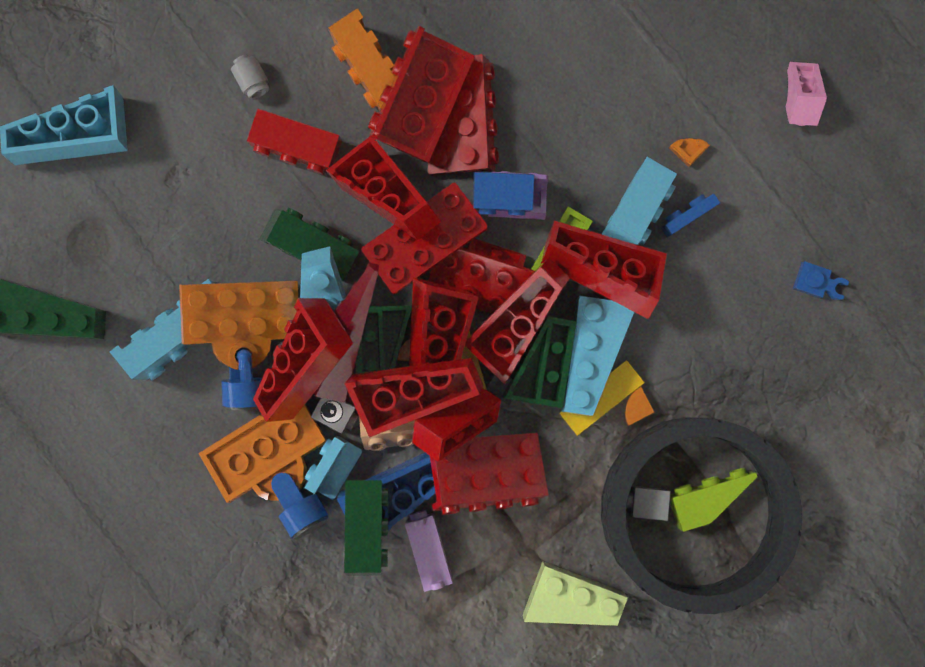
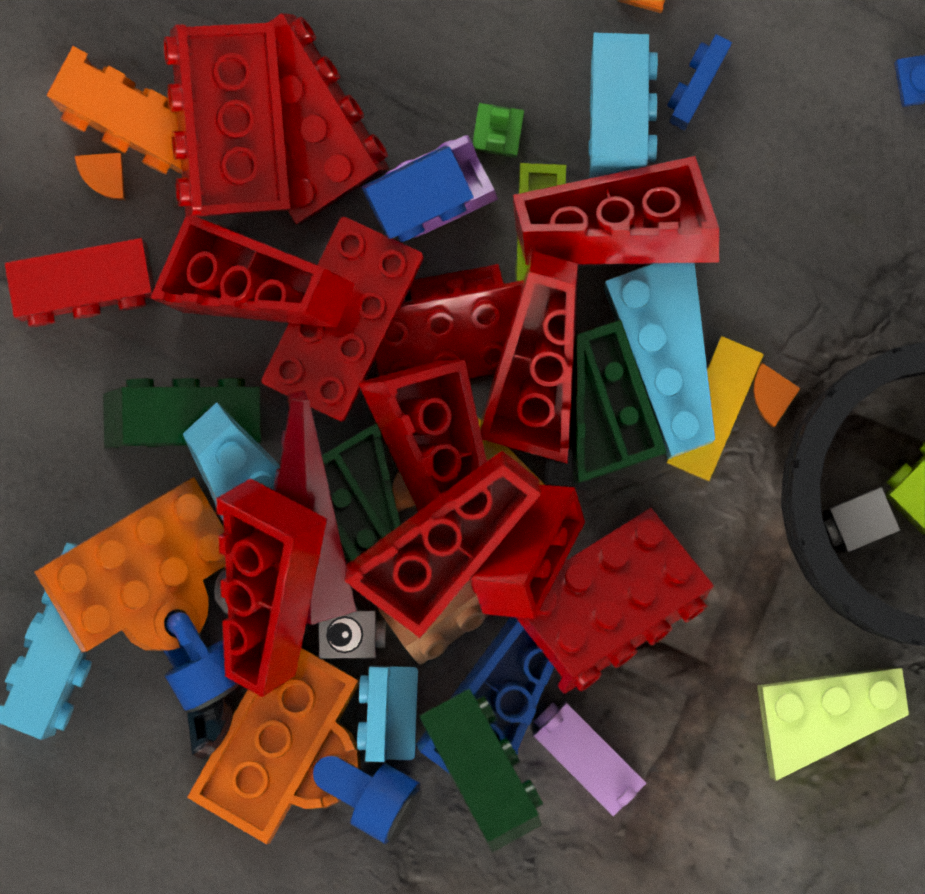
camera: 25 degrees left, 0 degrees up
(231, 422) = (210, 726): none -> black tile
(339, 90) = (103, 174): none -> orange tile
(565, 182) = (498, 130): none -> bright green tile

